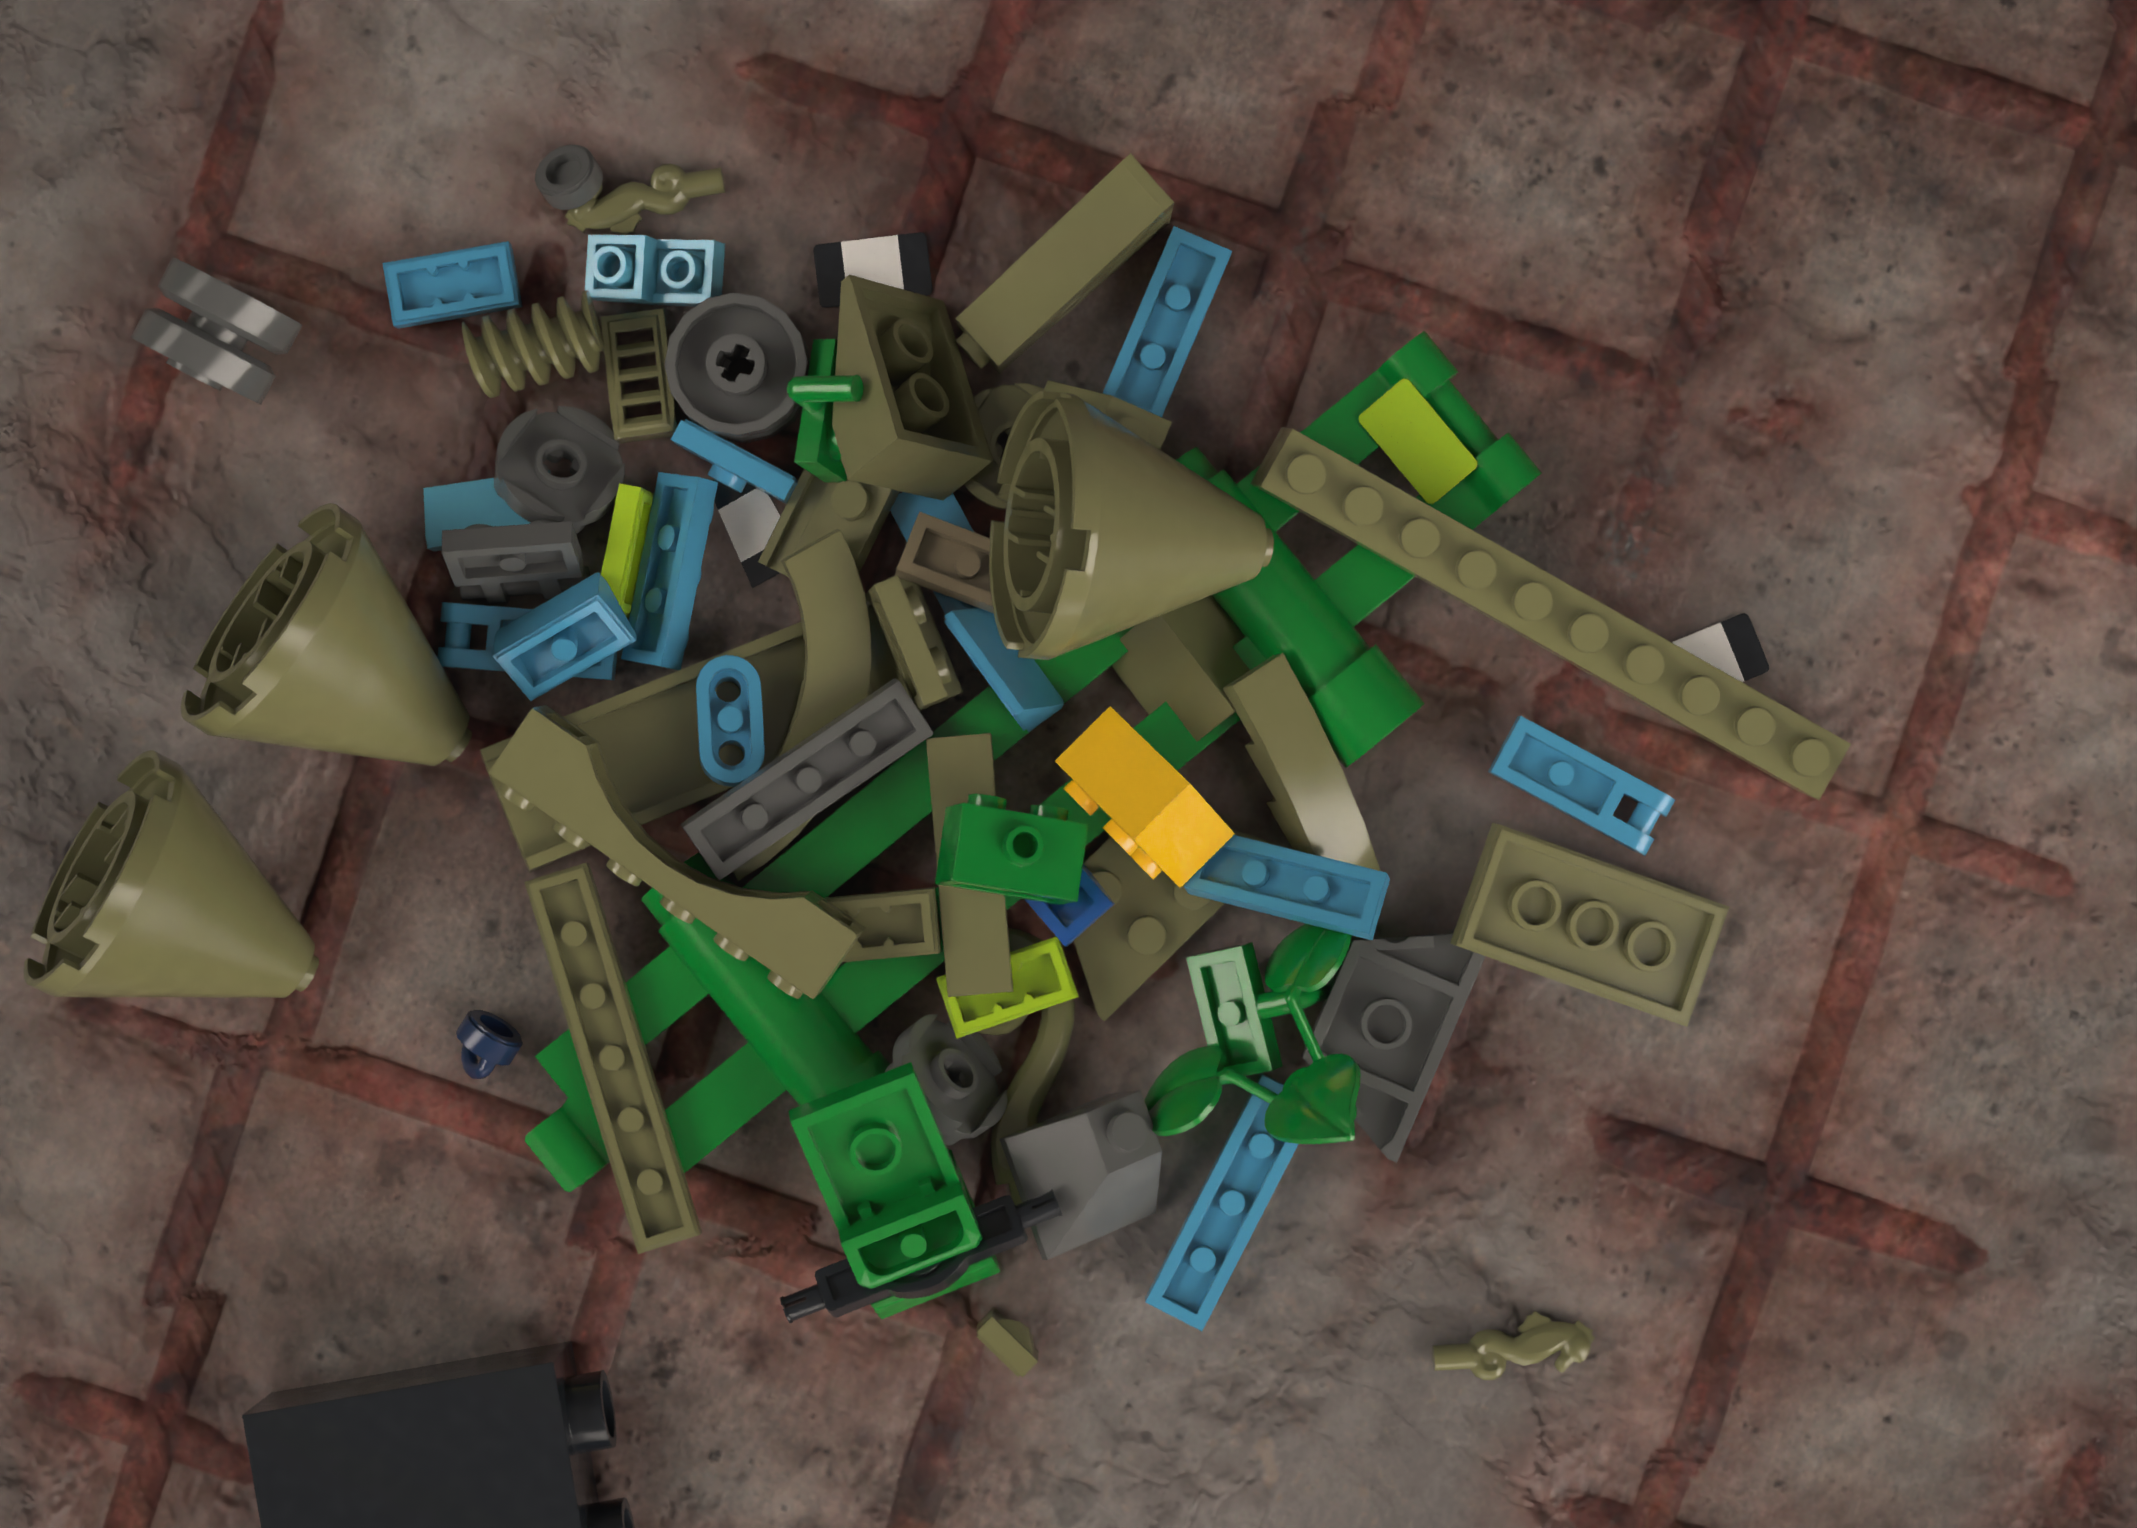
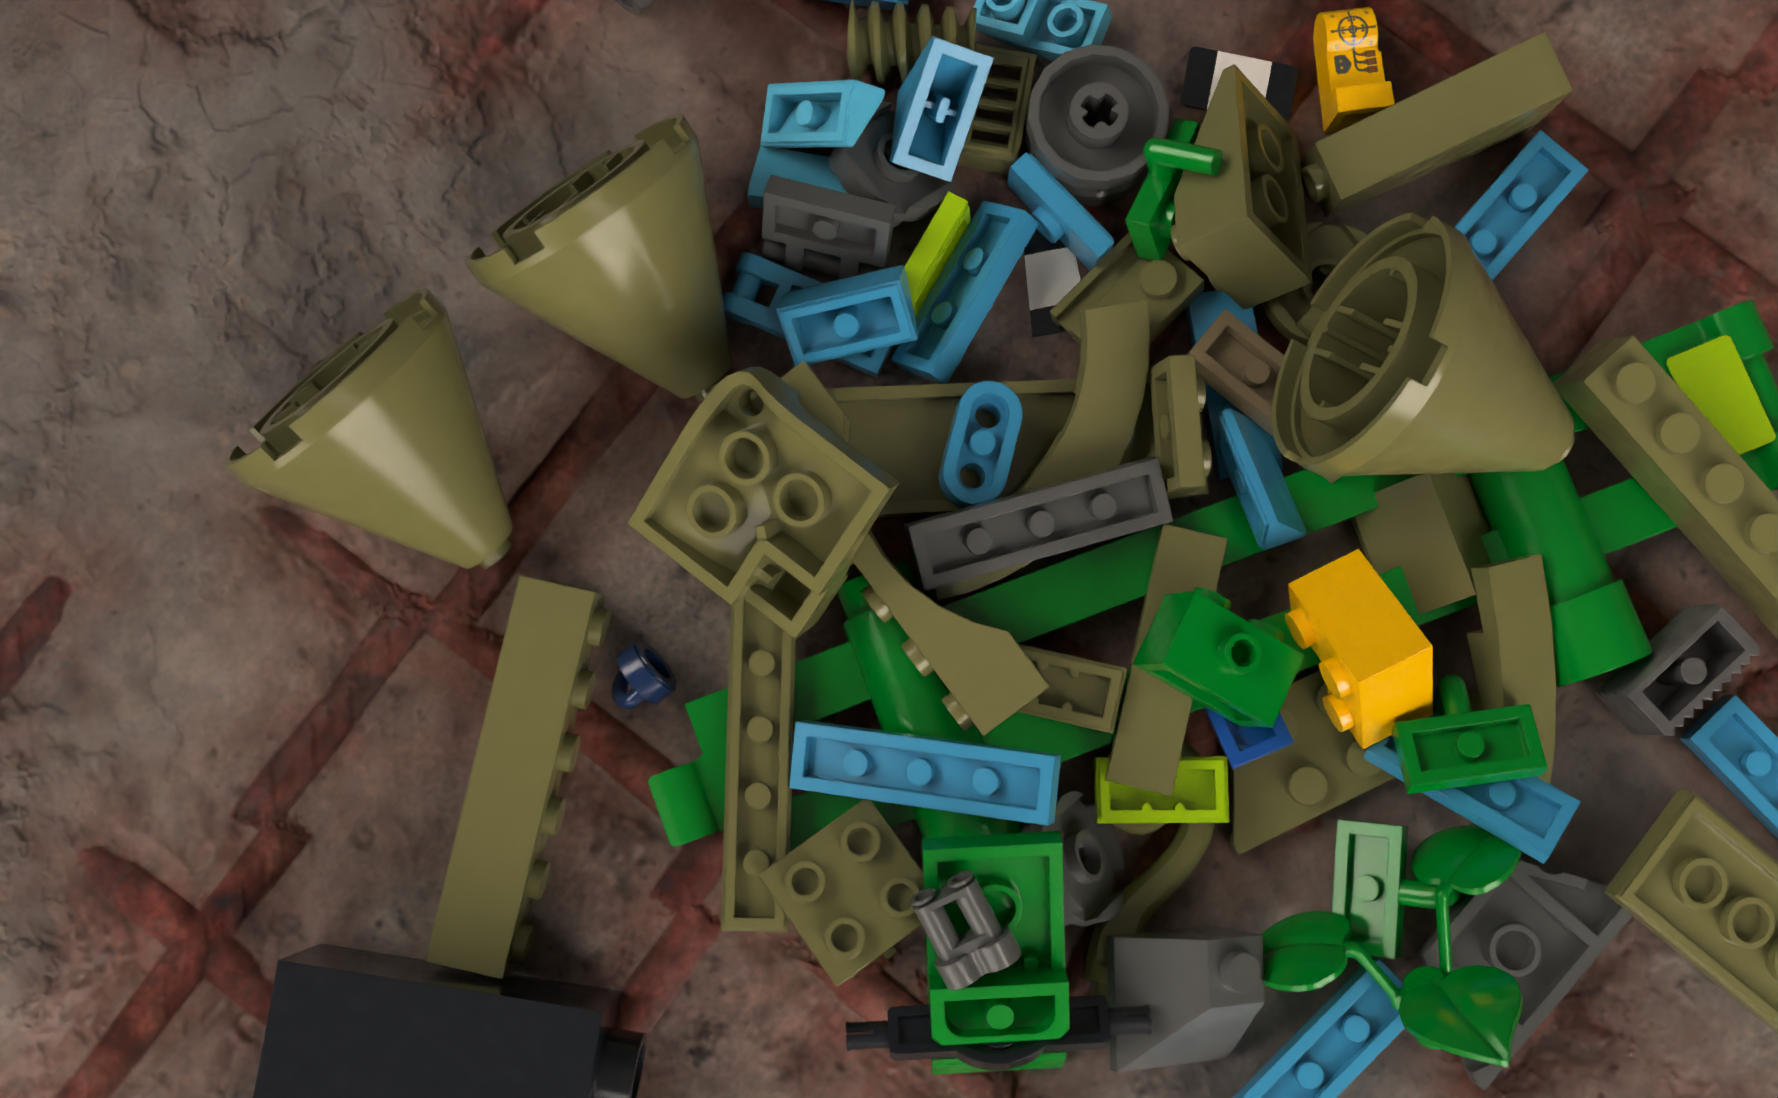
camera: 20 degrees right, 5 degrees down
(402, 1174) = (517, 779): none -> olive brick
(468, 449) = (818, 113): none -> medium azure slope
(537, 853) = (763, 501): none -> olive slope
(581, 409) = (938, 107): none -> dark azure slope
(744, 1180) = (848, 891): none -> olive plate
(773, 1047) = (926, 772): none -> dark azure plate
(864, 1201) = (975, 952): none -> dark grey piece
(972, 223) = (1349, 67): none -> yellow leg
(1267, 853) = (1467, 745): none -> green plate
(1456, 713) = (1686, 666): none -> flat silver brick

